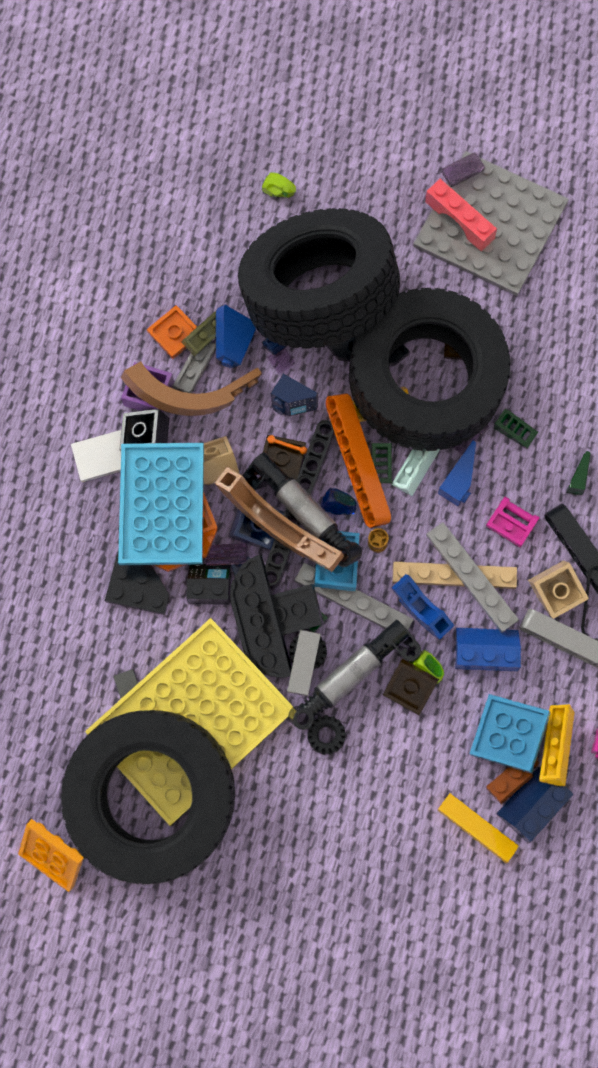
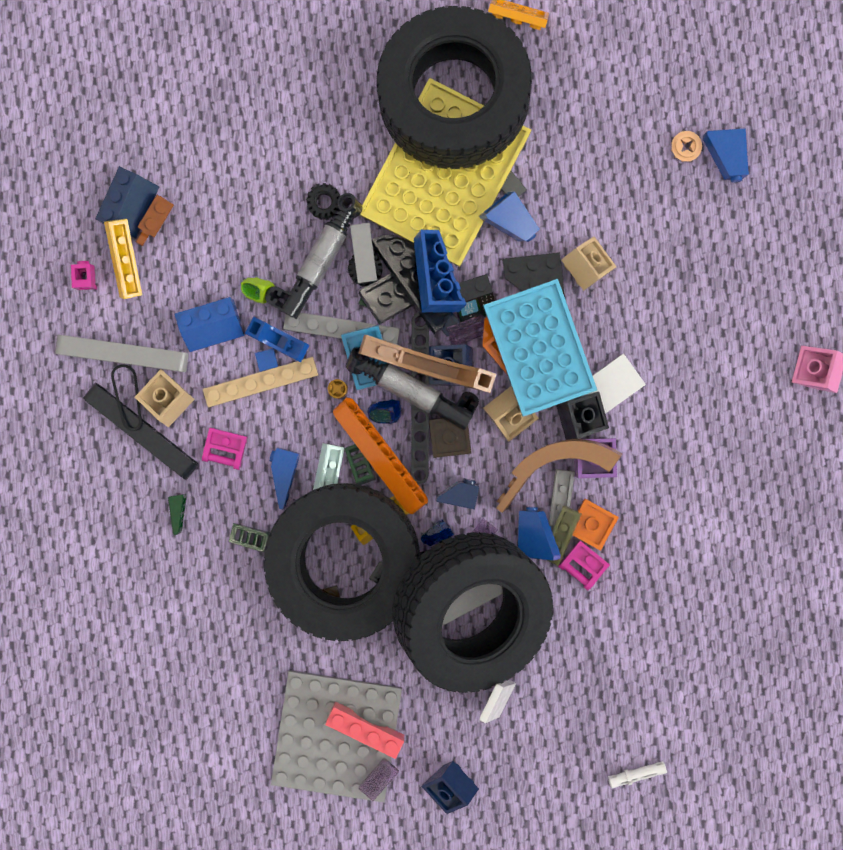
camera: 155 degrees right, 15 degrees up
(79, 578) = (588, 263): none -> tan slope
(140, 648) = (511, 218): none -> slope
(191, 300) = (588, 560): none -> dark pink plate
(219, 102) = (638, 774): none -> white pin
(238, 611) = (435, 274): none -> blue wedge
(271, 440) = (465, 449): orange hinge -> none
(278, 186) = (548, 704): lime rock -> none
(328, 371) = (437, 533): none -> clear blue rock
(329, 195) = (497, 701): none -> white tile
(397, 143) = (450, 787): none -> dark blue slope
(410, 687) = (264, 266): dark brown plate -> none
(441, 594) = (266, 360): none -> blue tile
(472, 577) = (243, 382): light grey plate -> none
(478, 828) = (170, 168): yellow slope -> none
(510, 733) = (166, 254): dark azure plate -> none

